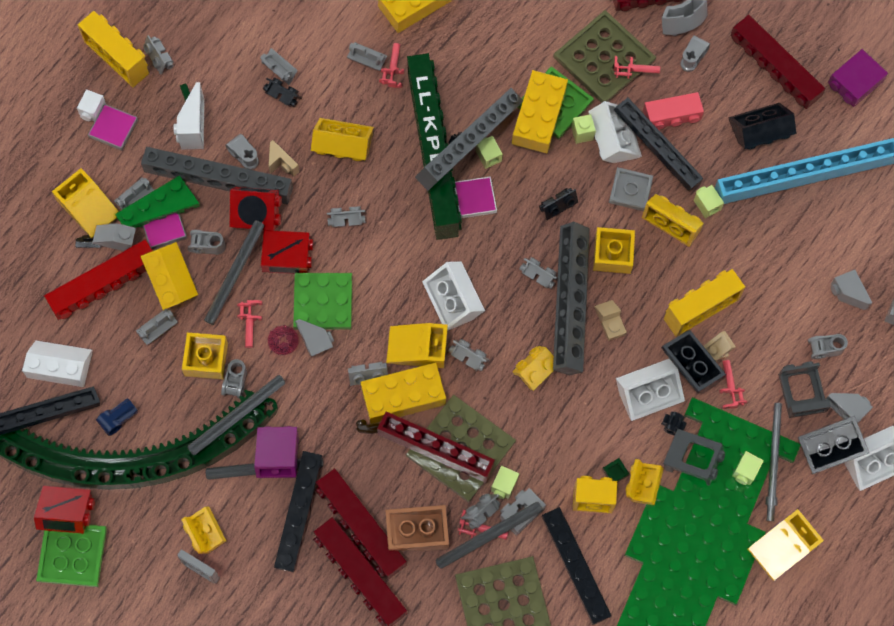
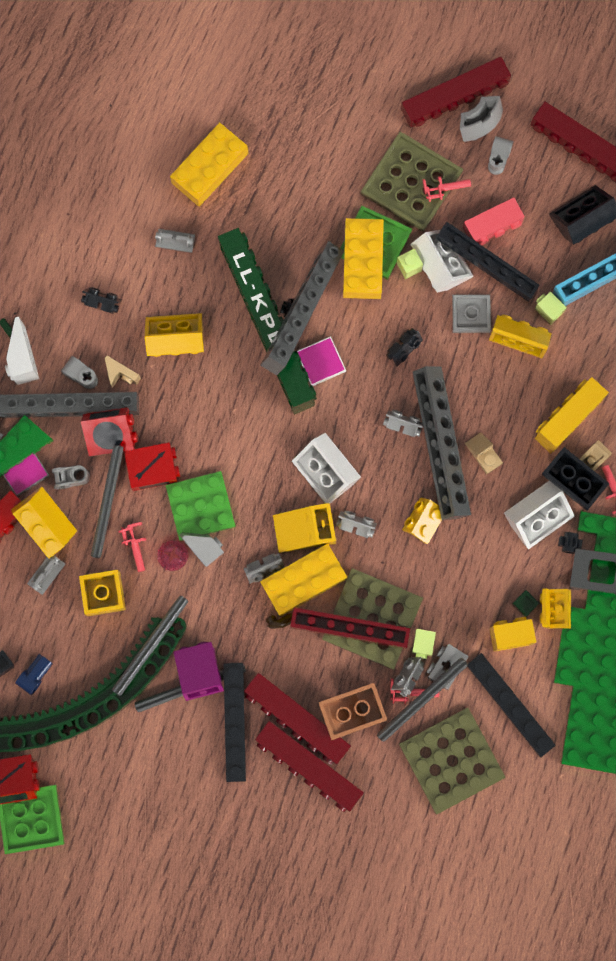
camera: 10 degrees left, 10 degrees up
(198, 566) = (155, 802): light grey tile -> none
(203, 531) = (149, 764): yellow bracket -> none
(234, 383) = (137, 610): light grey piece -> none
(279, 66) = (90, 273): light grey hinge -> none
(353, 215) = (206, 410): light grey hinge -> none
(393, 68) = (204, 244): coral piece -> none
(489, 152) = (324, 312): yellowish green brick -> none
(614, 250) = (470, 383): yellow brick -> none

